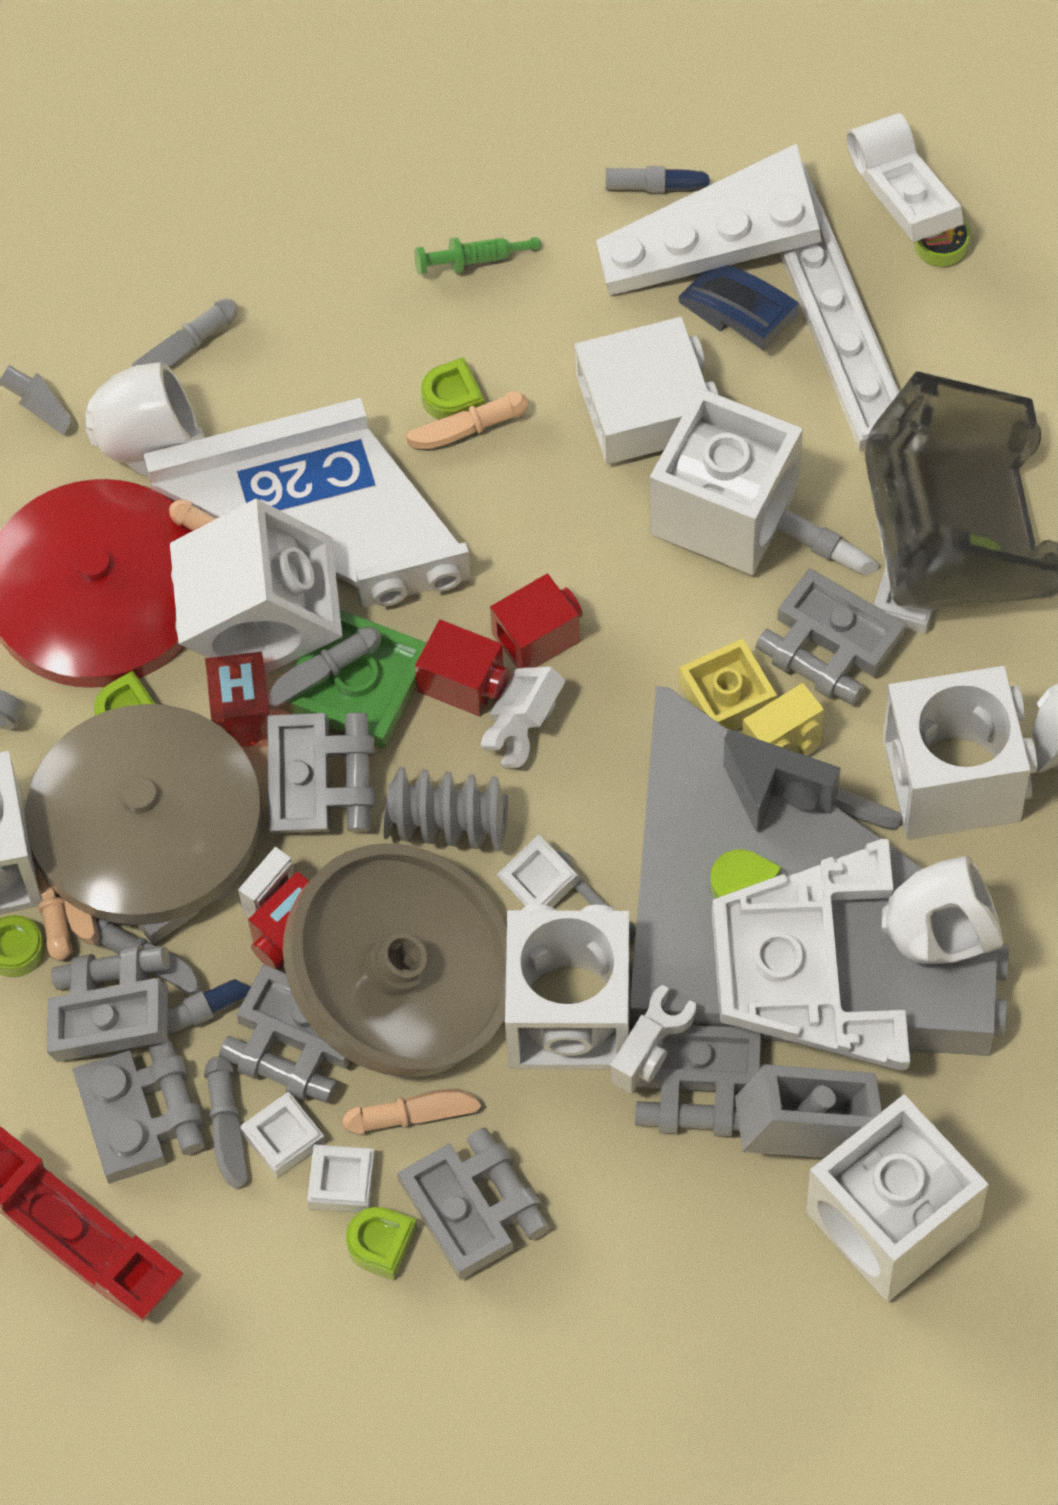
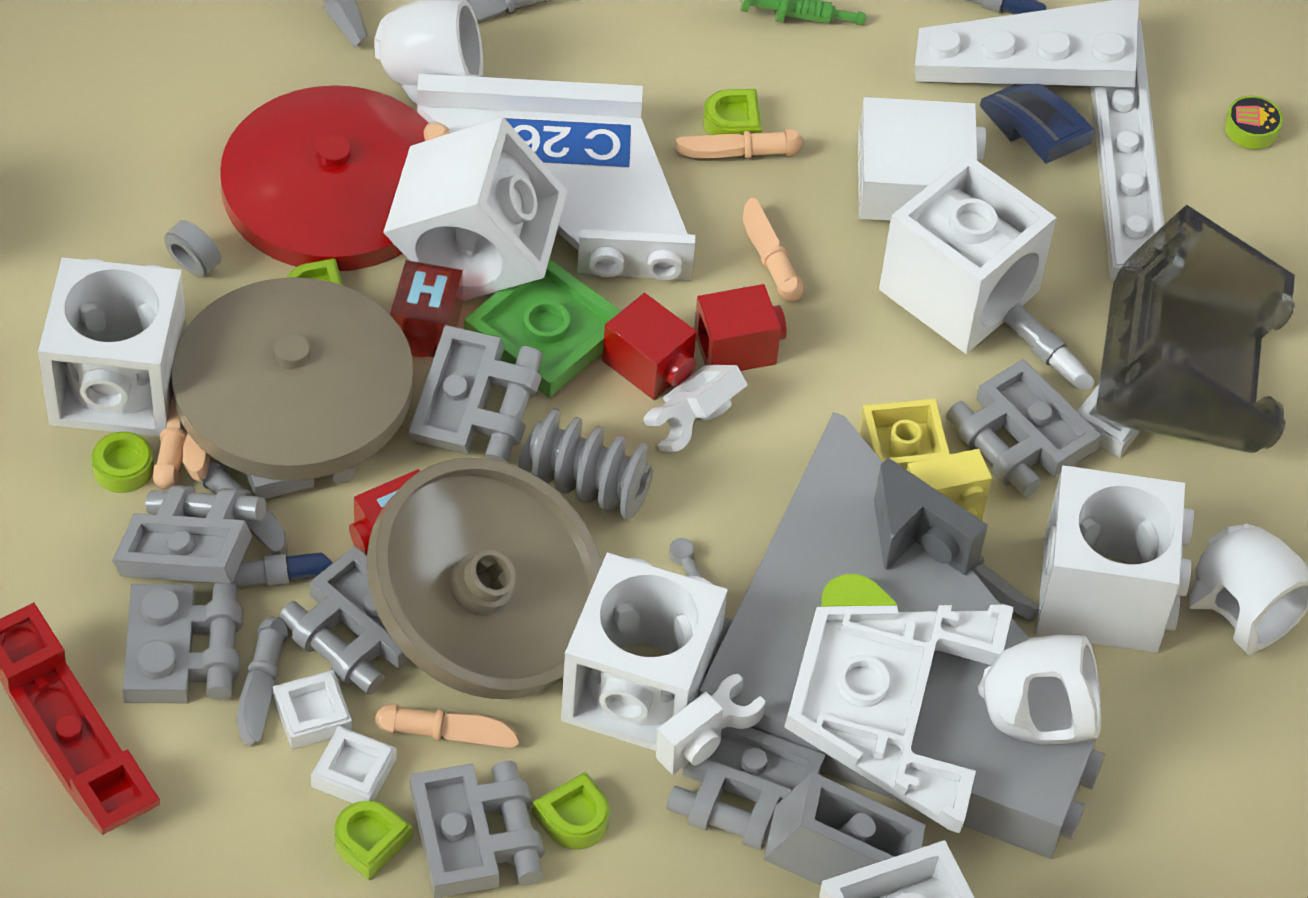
camera: 10 degrees right, 10 degrees down
(265, 881) = (385, 467): white tile -> none
(318, 669) = (513, 302): light grey piece -> none
(536, 525) = (773, 254): none -> light nougat piece
(539, 874) = (660, 545): white tile -> none
(554, 1156) = (574, 813): none -> lime tile
(901, 180) = (1229, 58): white plate -> none

